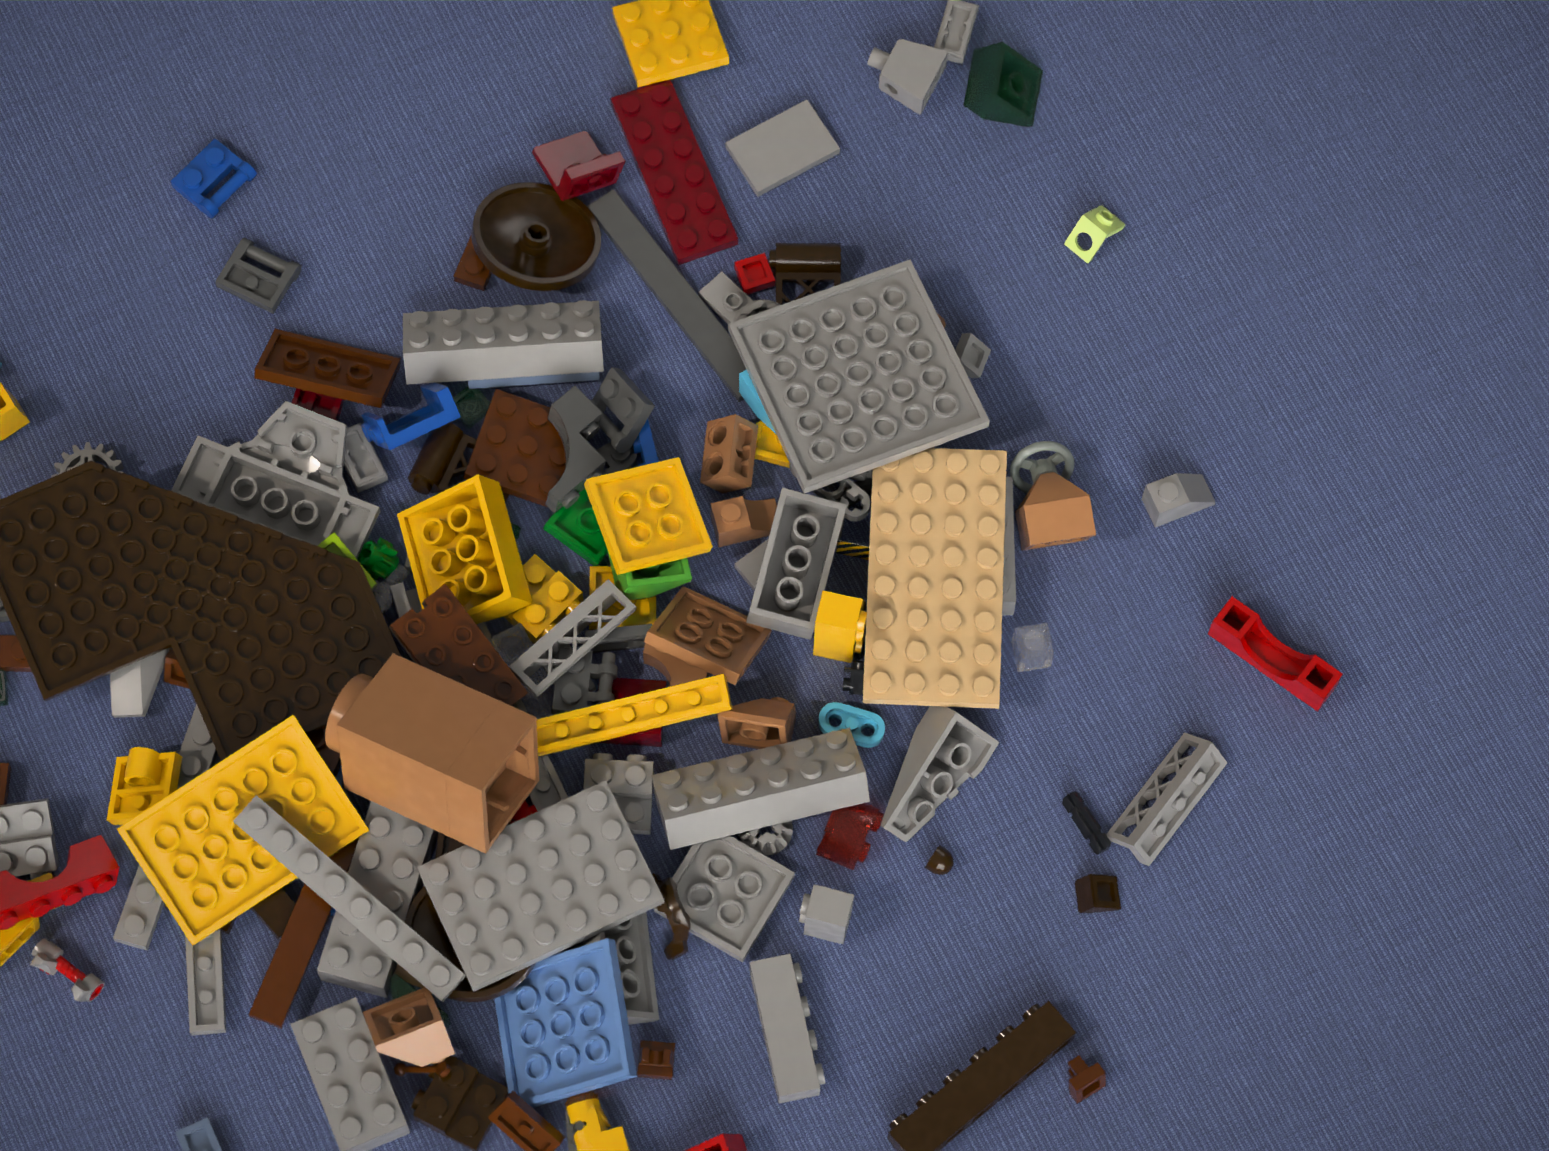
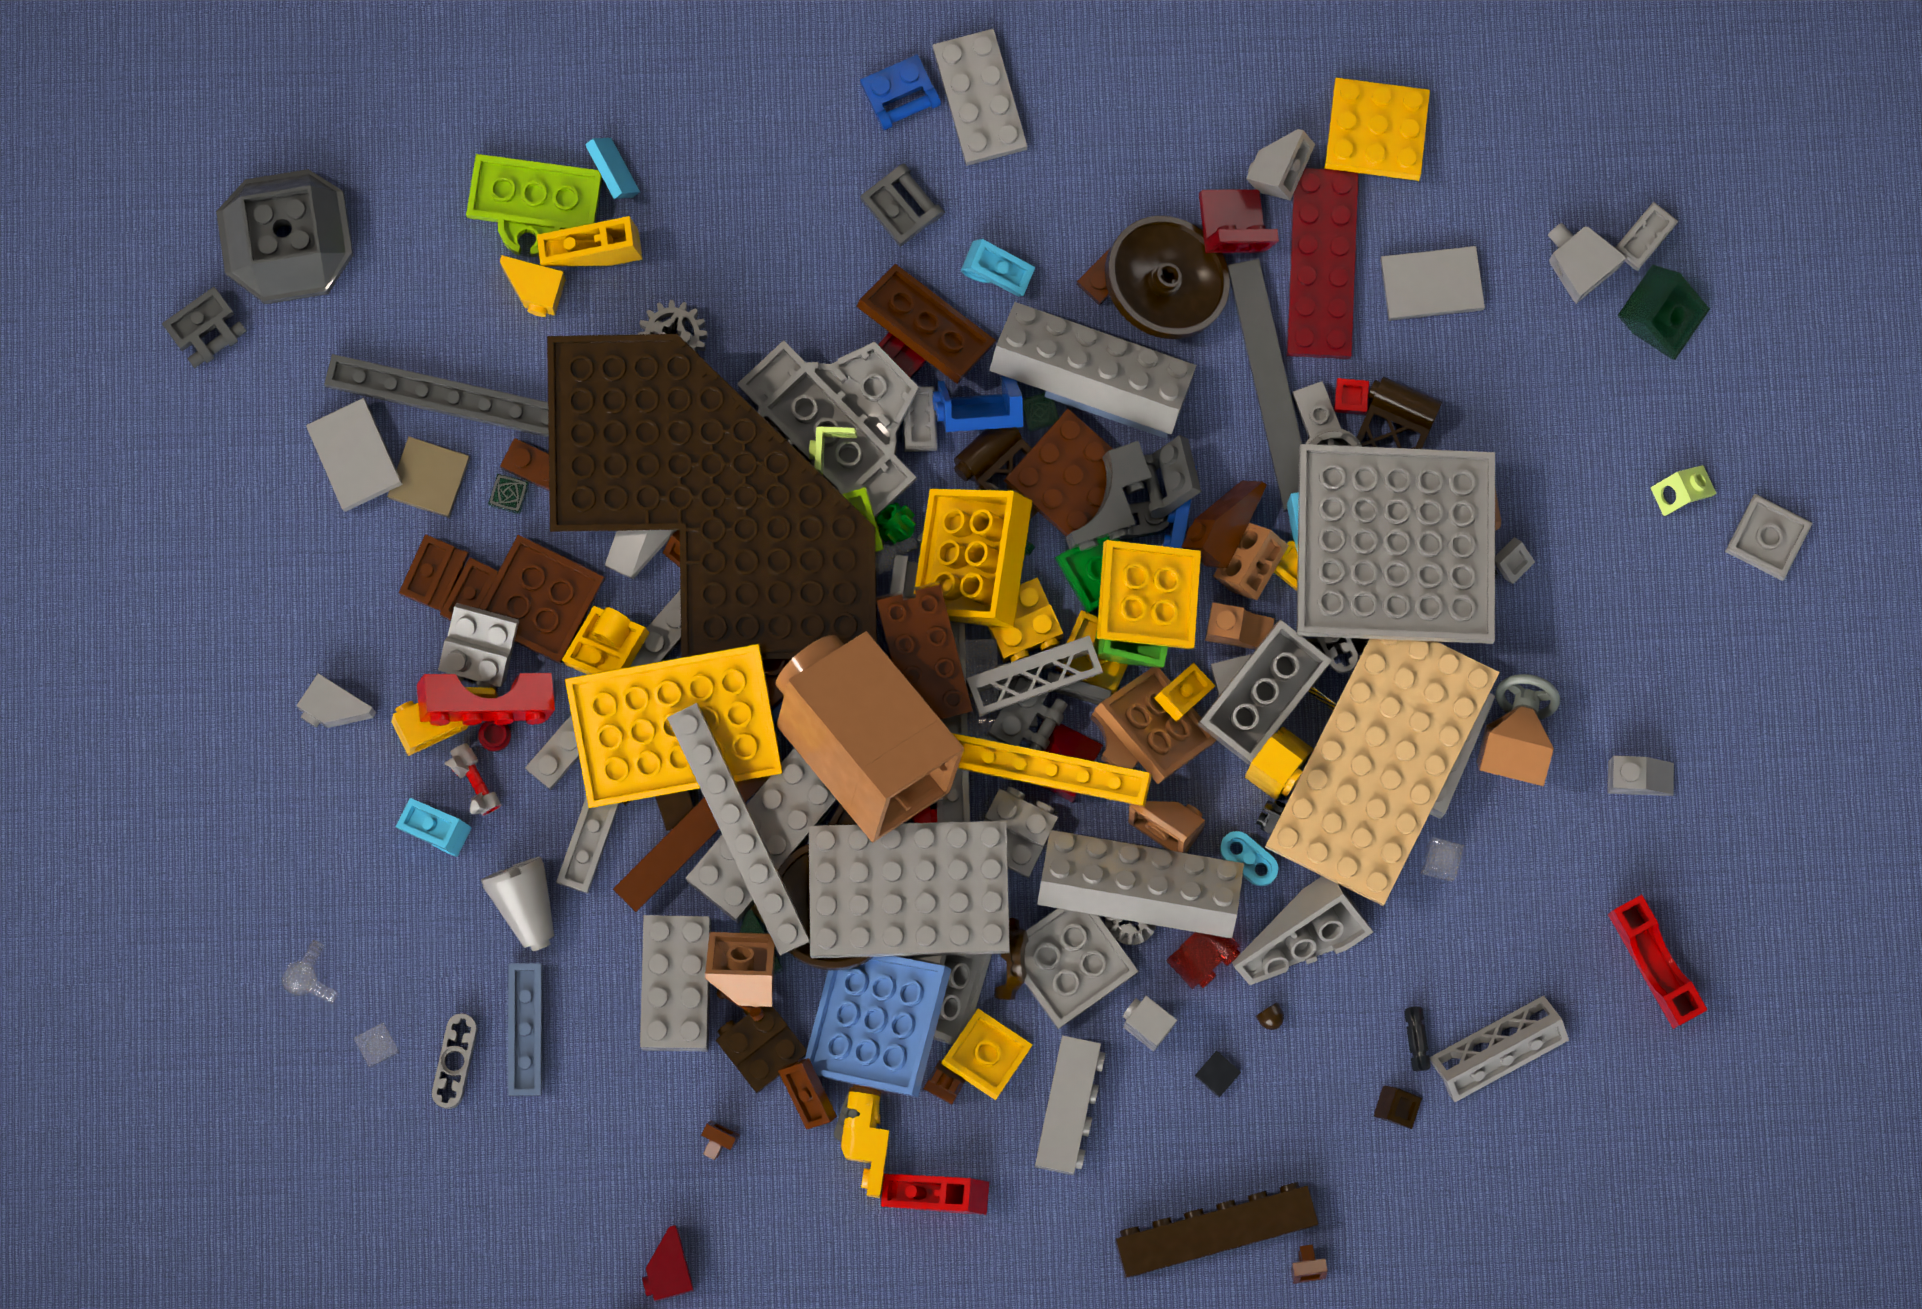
camera: 25 degrees right, 10 degrees up
(49, 1031) = (434, 827): none -> medium azure plate
(67, 765) = (545, 595): none -> reddish brown plate
(69, 920) = (494, 736): none -> dark red plate
(165, 1064) = (523, 901): none -> light grey cone
(276, 499) = (816, 447): none -> yellowish green bracket
(290, 153) = (979, 97): none -> light grey plate
(367, 291) = (992, 264): none -> medium azure plate
(597, 98) = (1281, 165): none -> light grey slope
(684, 1013) = (986, 1054): none -> yellow plate
(690, 430) = (1223, 524): none -> reddish brown slope
(721, 597) = (1184, 692): none -> yellow plate
(914, 937) = (1217, 1074): none -> black tile
(1190, 242) = (1768, 537): none -> light grey tile

